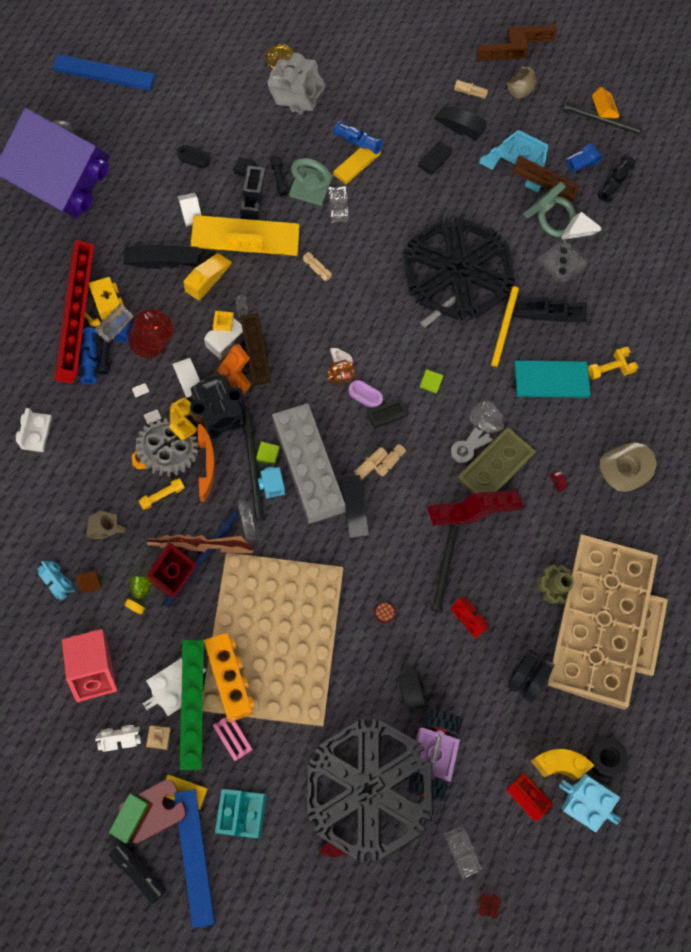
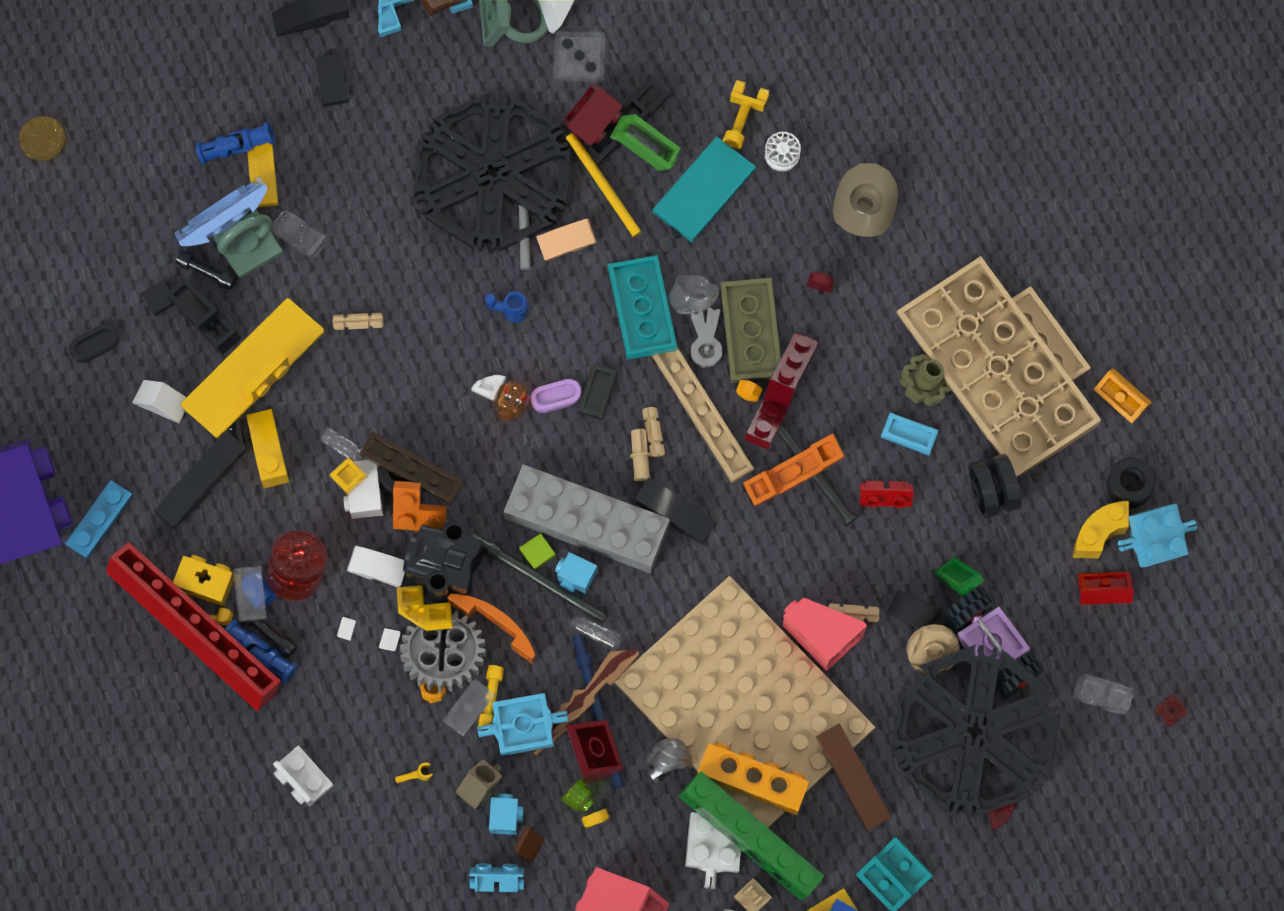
camera: 45 degrees left, 5 degrees up
(84, 489) = (415, 774): none -> yellow hand
(96, 554) = (505, 814): none -> medium azure brick
(99, 227) = (99, 519): none -> dark azure plate
(144, 485) = (468, 707): none -> clear slope
(157, 521) = (522, 724): none -> medium azure plate
(202, 616) = (665, 757): none -> flat silver hair
(241, 753) = (810, 835): bright pink tile -> none
(280, 737) = (853, 777): none -> reddish brown tile
(296, 83) = (108, 154): light grey piece -> none
(328, 158) = (222, 214): none -> light blue slope
(353, 645) = (822, 630): none -> coral slope
(382, 656) = (858, 612): none -> tan axle
(384, 612) = (810, 573): tile -> none
(395, 333) = (514, 306): none -> blue piece
(401, 717) = (931, 644): none -> tan tile
(426, 478) = (704, 414): none -> tan tile
(431, 381) = (600, 315): lime tile -> none
(436, 554) = (794, 470): none -> orange slope
(455, 399) = (642, 307): none -> teal tile
(457, 331) = (566, 239): none -> light nougat slope
(457, 700) = (959, 576): none -> green tile
(460, 491) = (749, 390): none -> light orange tile
(517, 602) = (909, 433): none -> medium azure tile
(536, 287) = (593, 114): none -> dark red slope
(548, 326) = (646, 142): none -> bright green window
(612, 402) = (782, 152): none -> white wheel
(654, 708) = (1122, 395): none -> light orange slope

